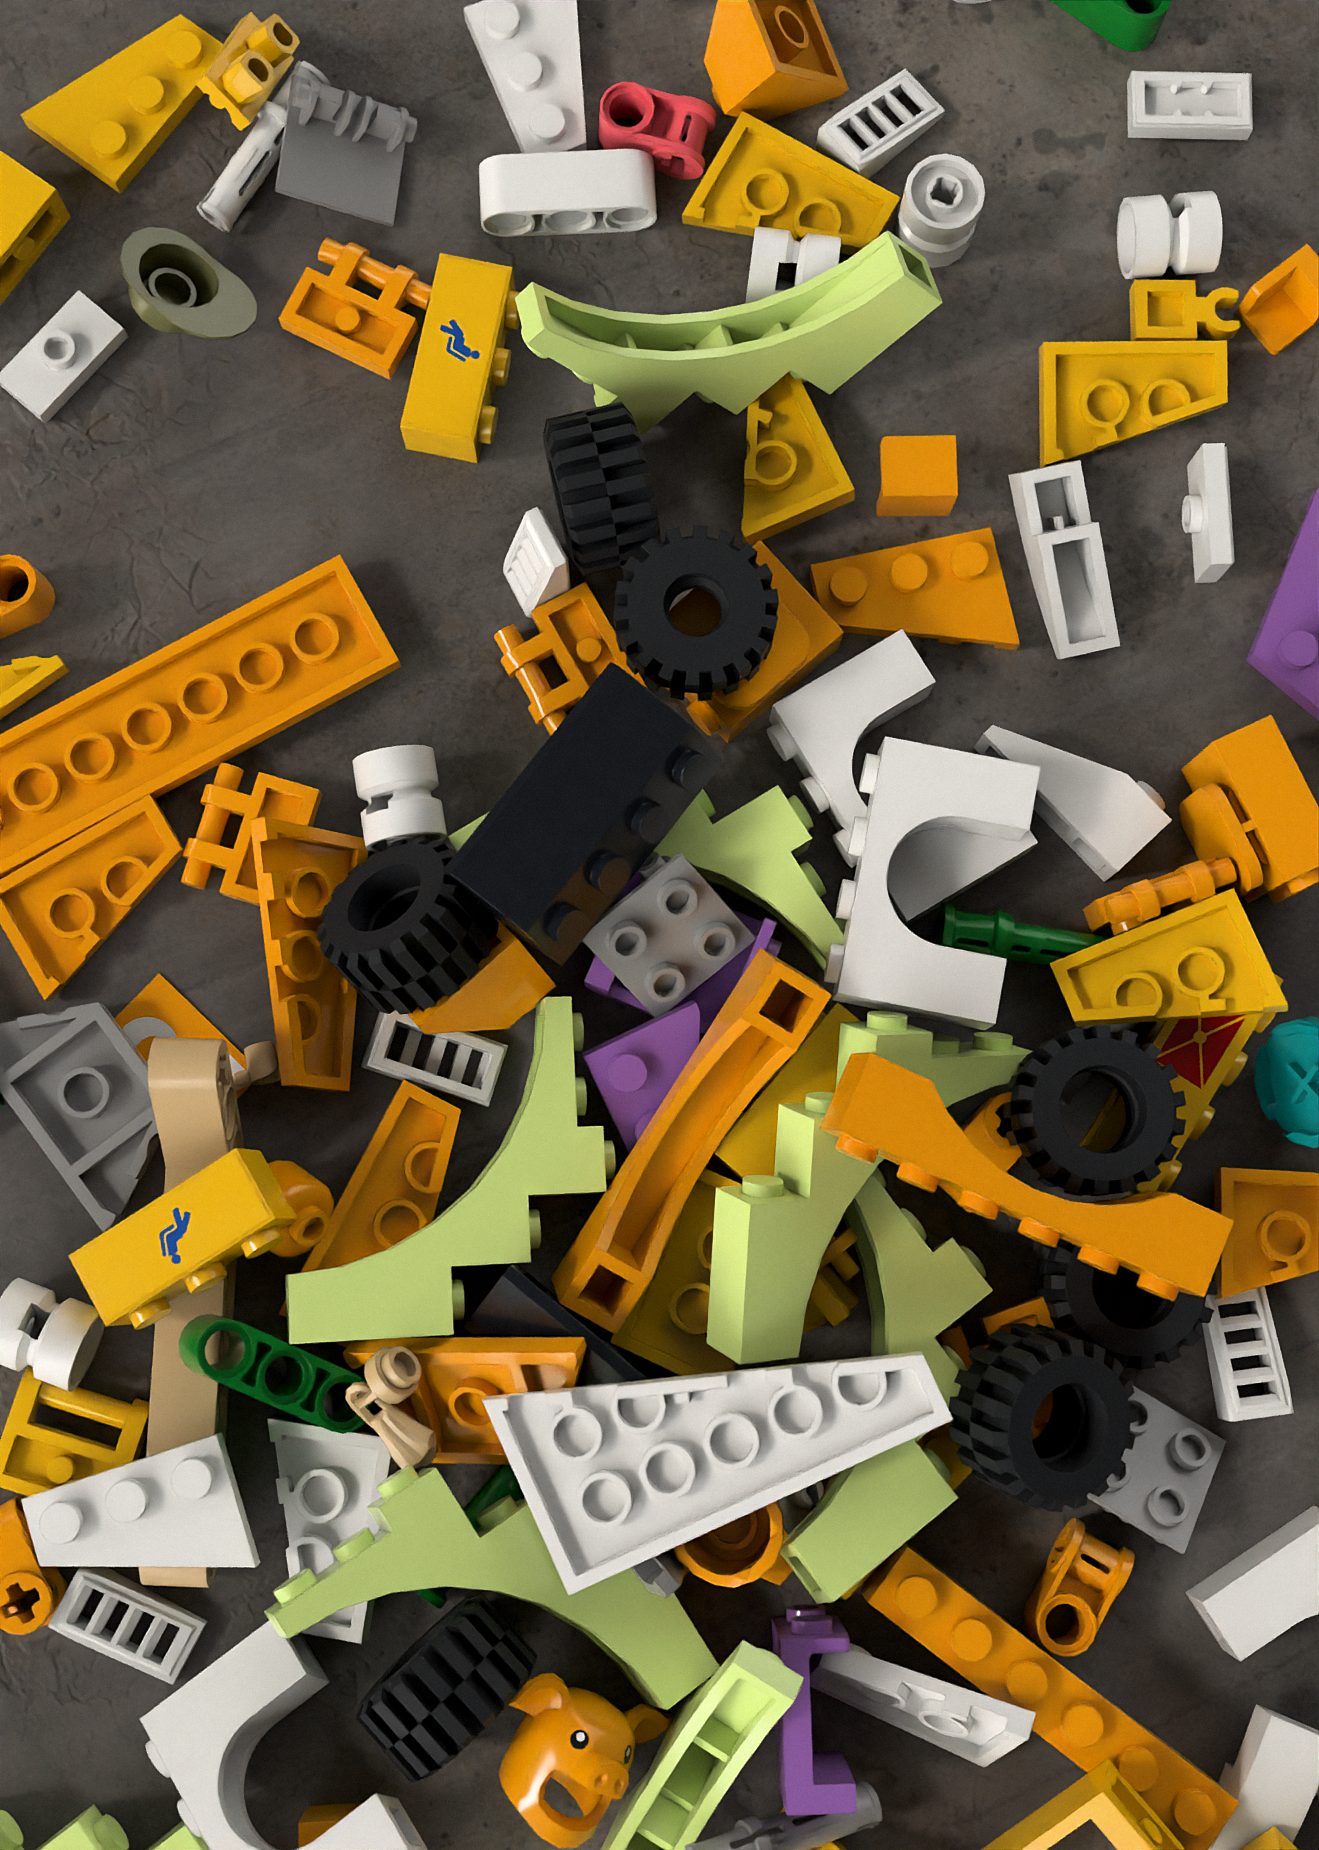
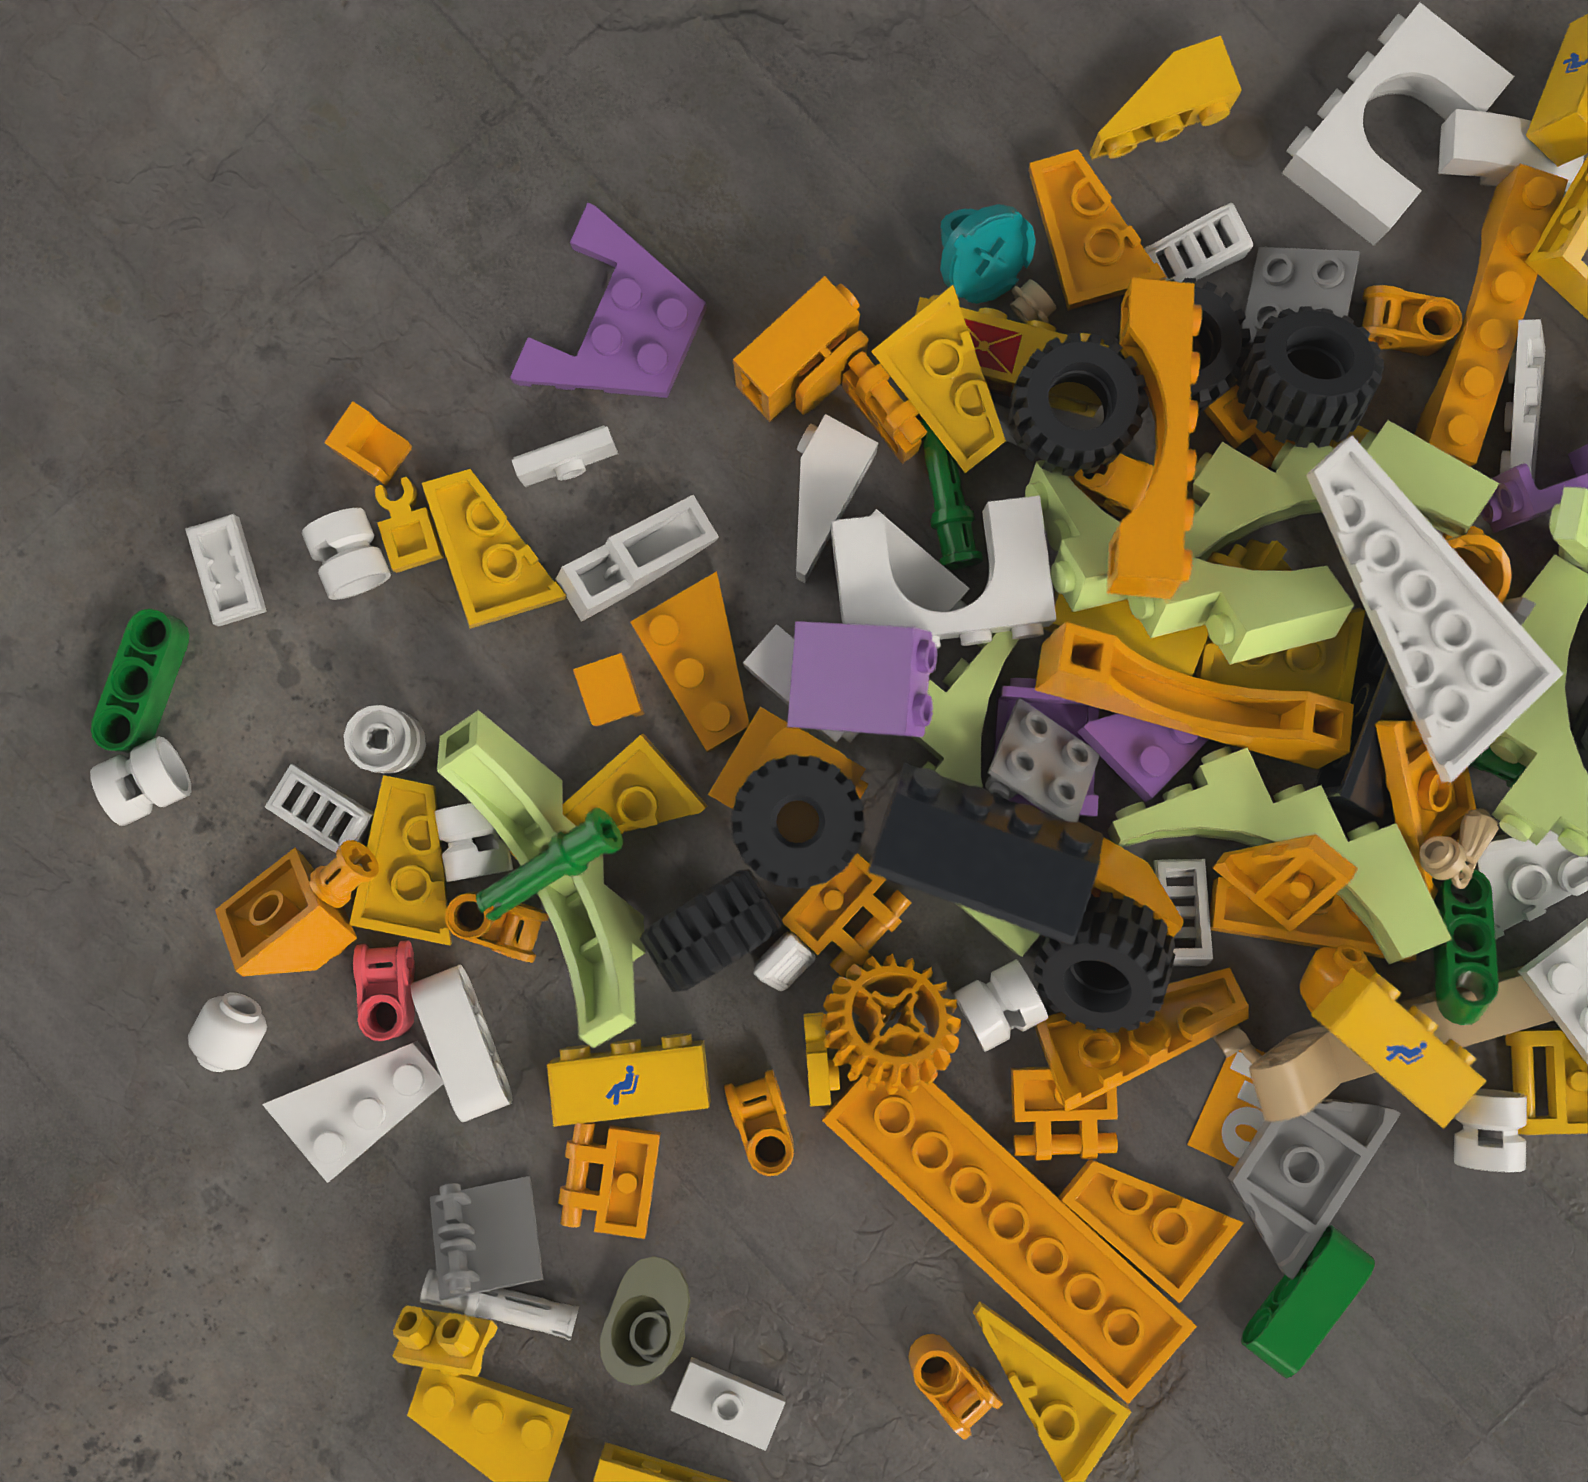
camera: 105 degrees left, 5 degrees up
(365, 489) = (761, 1119): none -> light orange piece
(399, 571) = (822, 1073): none -> yellow plate
(408, 638) = (860, 994): none -> light orange gear
(435, 1177) = (1287, 876): none -> light orange wing
(681, 276) = (502, 933): none -> light orange piece
(743, 343) = (566, 855): none -> green pin
(800, 115) = (344, 873): none -> light orange bush
(838, 738) = (861, 678): none -> medium lavender panel
(1235, 1125) = (1032, 302): none -> tan plate

